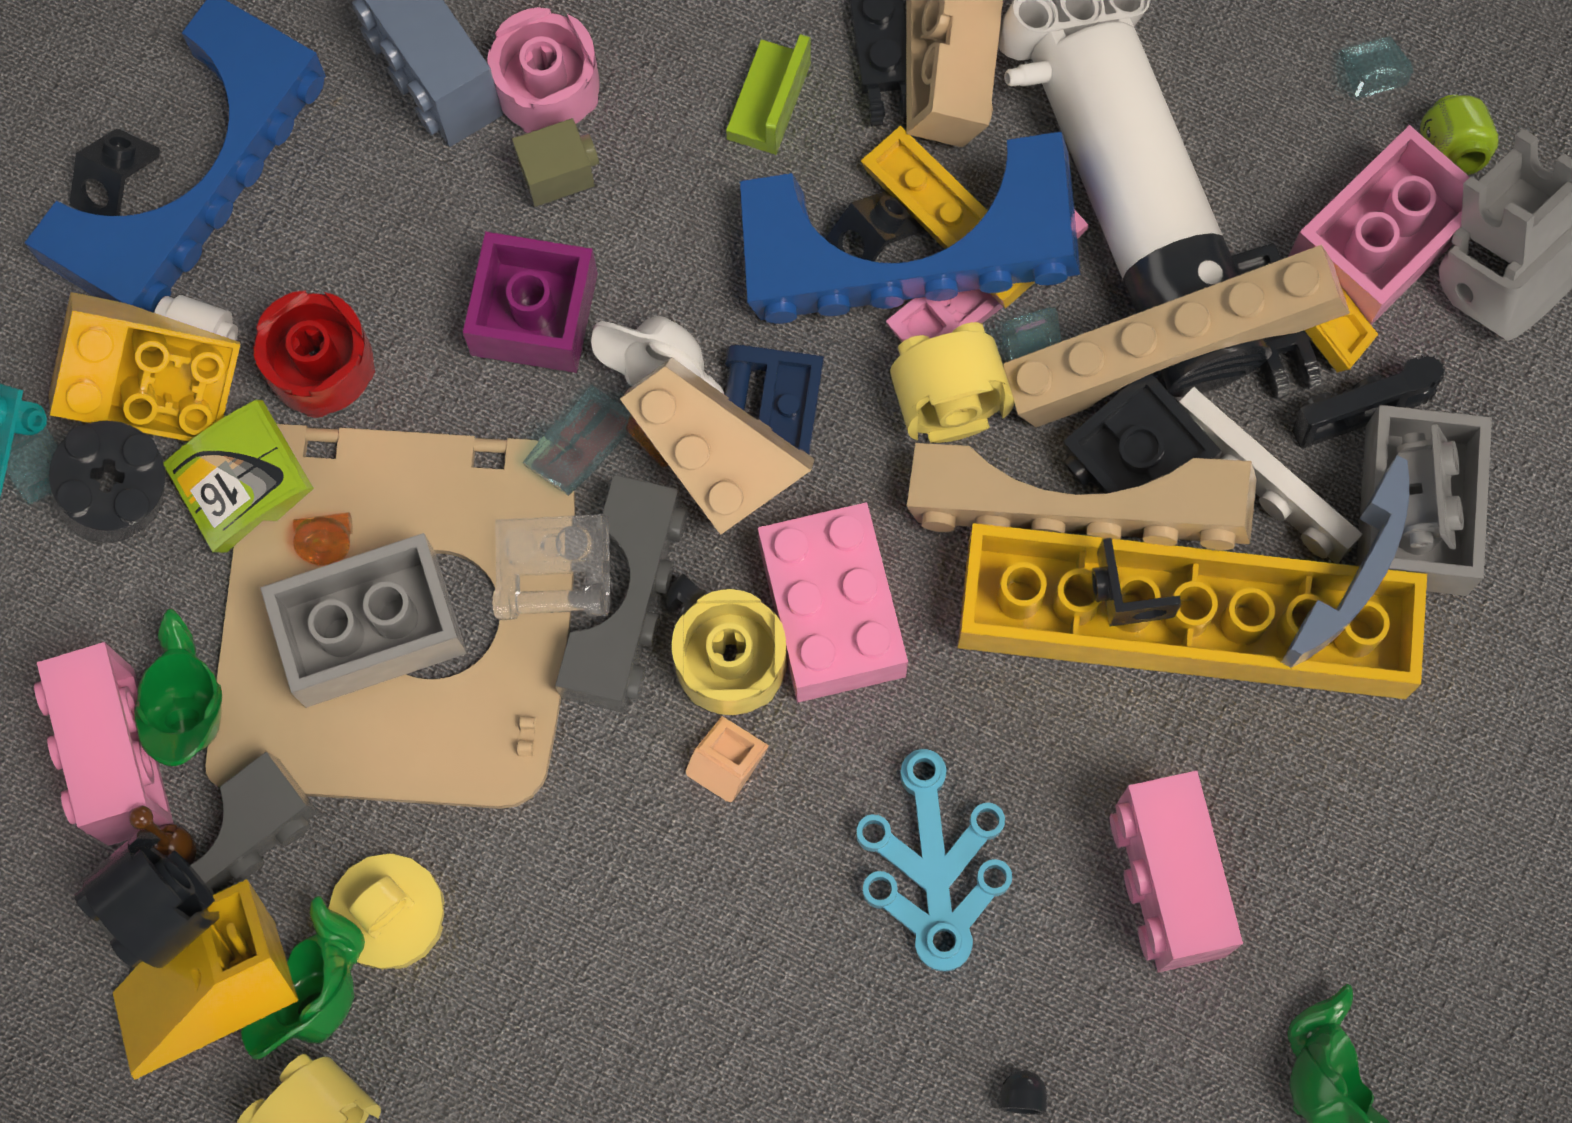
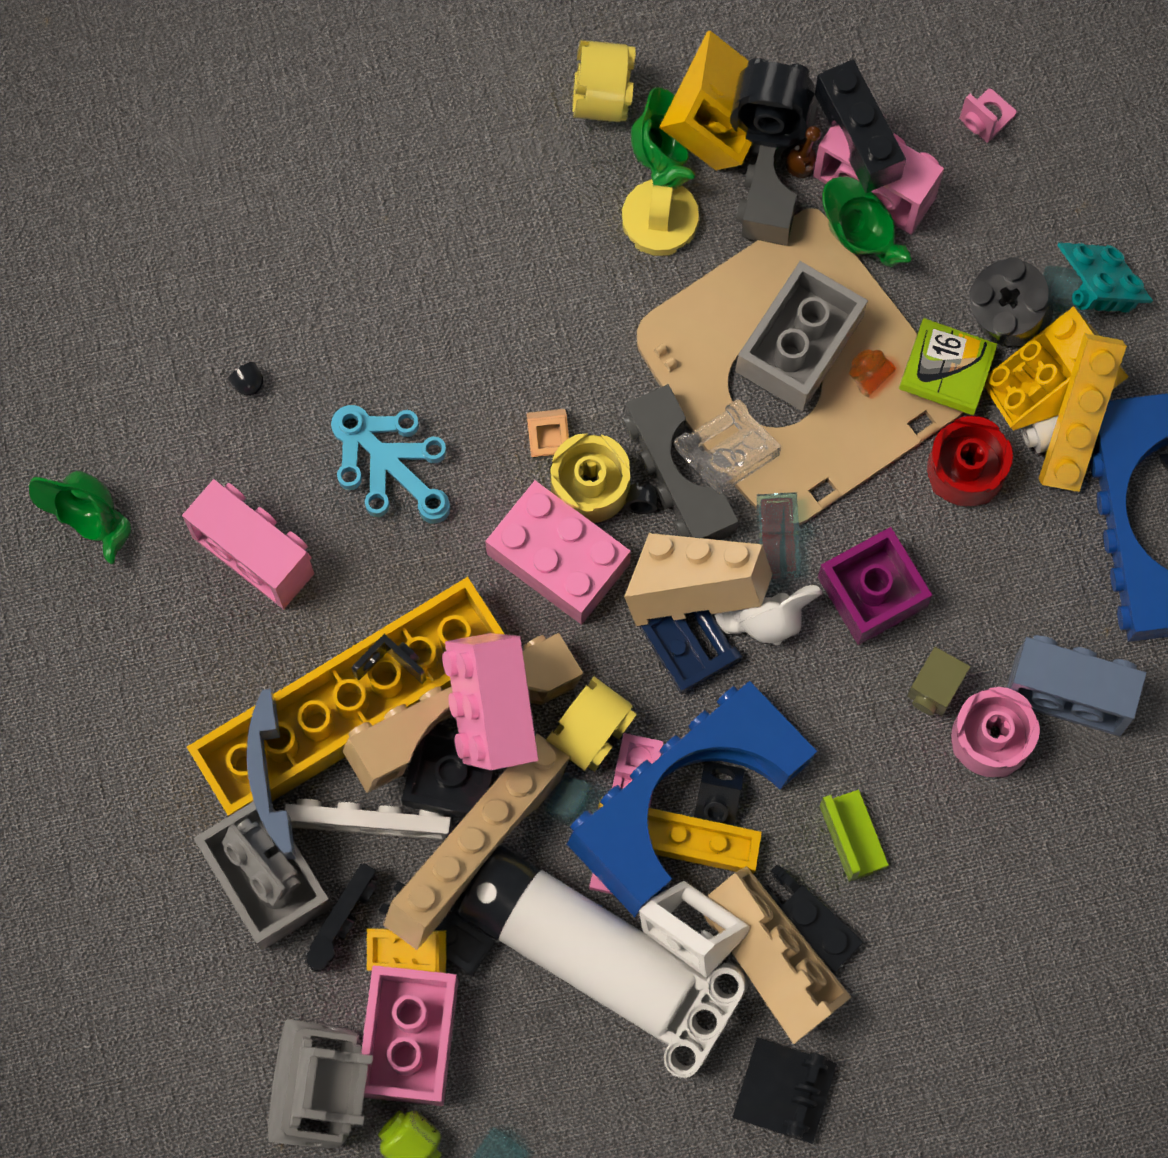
camera: 140 degrees right, 0 degrees up
(68, 805) = (871, 143): none -> black arch
(152, 291) = (1082, 412): none -> yellow plate
(1046, 80) = (682, 940): none -> white tile
(1056, 447) = (490, 701): none -> bright pink brick

